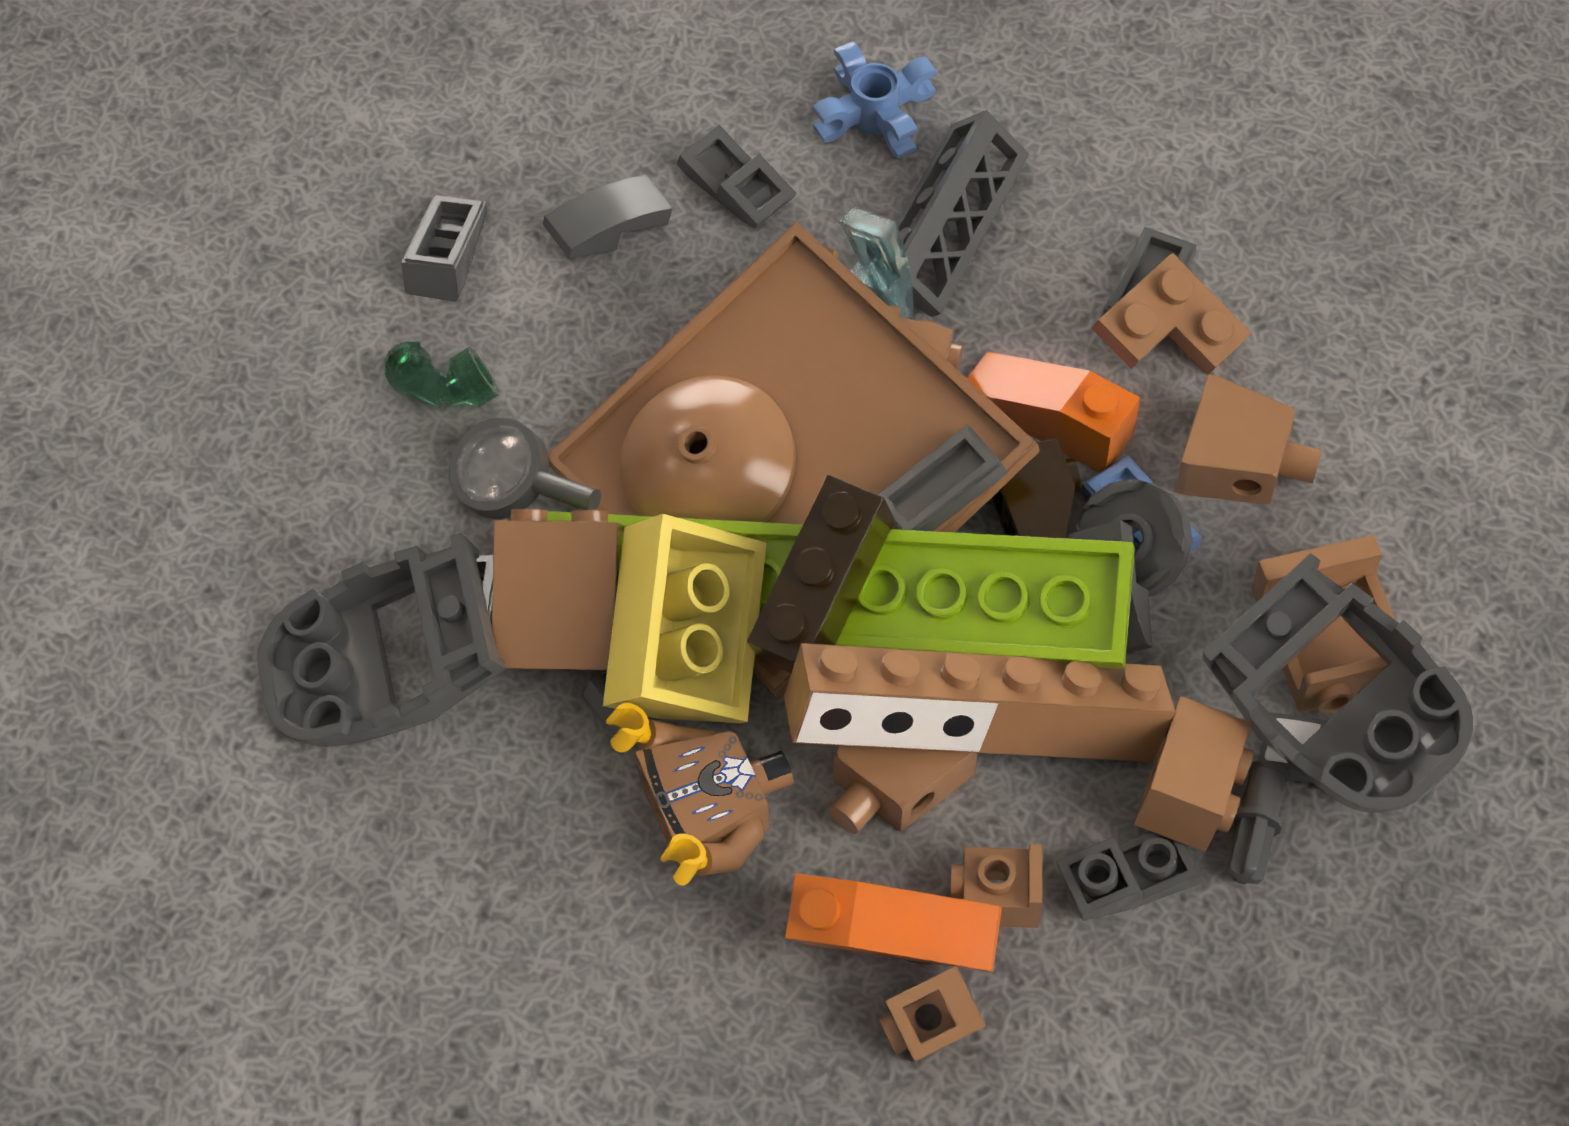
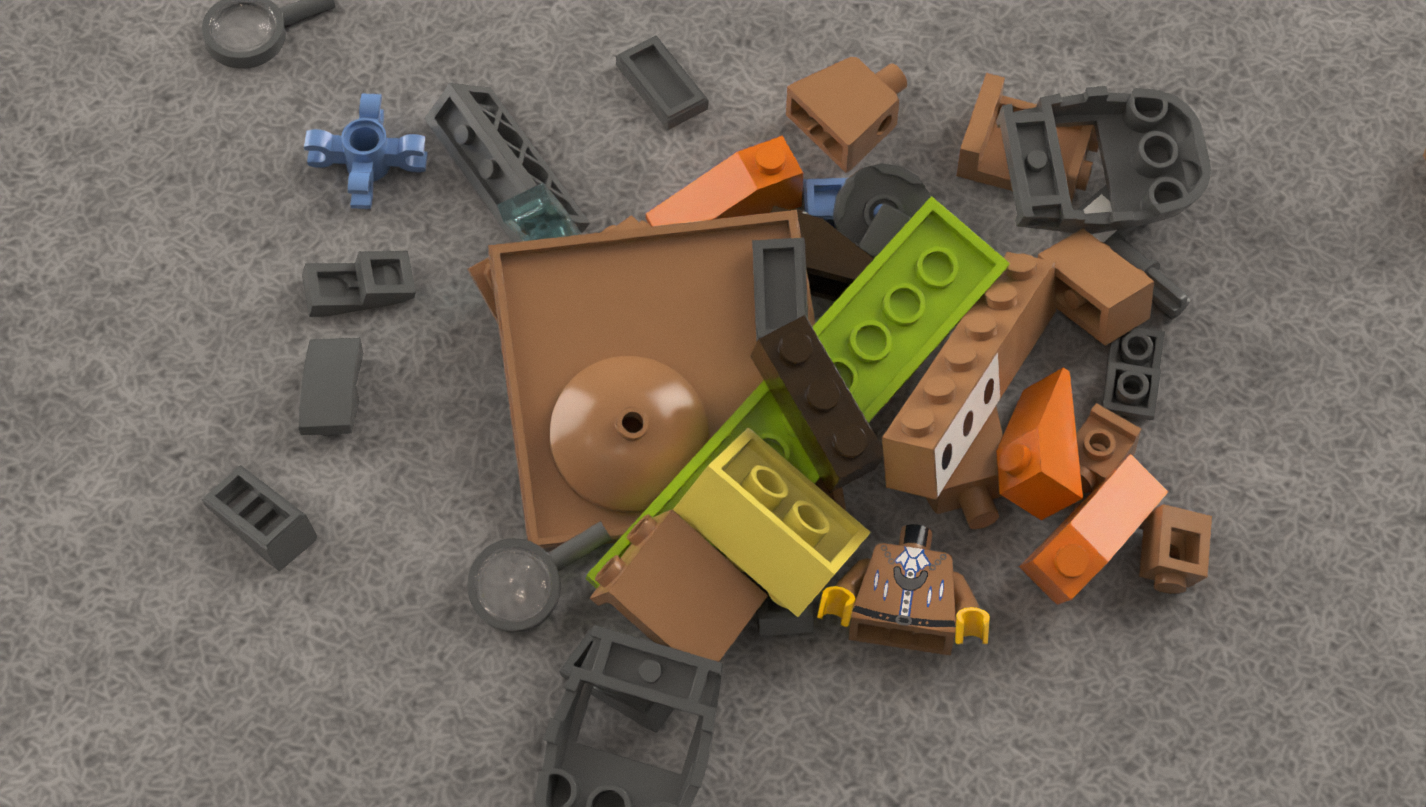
camera: 60 degrees left, 0 degrees up
(413, 373) = (376, 599): clear green arm -> none
(933, 822) = (1040, 449): none -> orange slope
(1174, 305) = (705, 81): medium nougat plate -> none

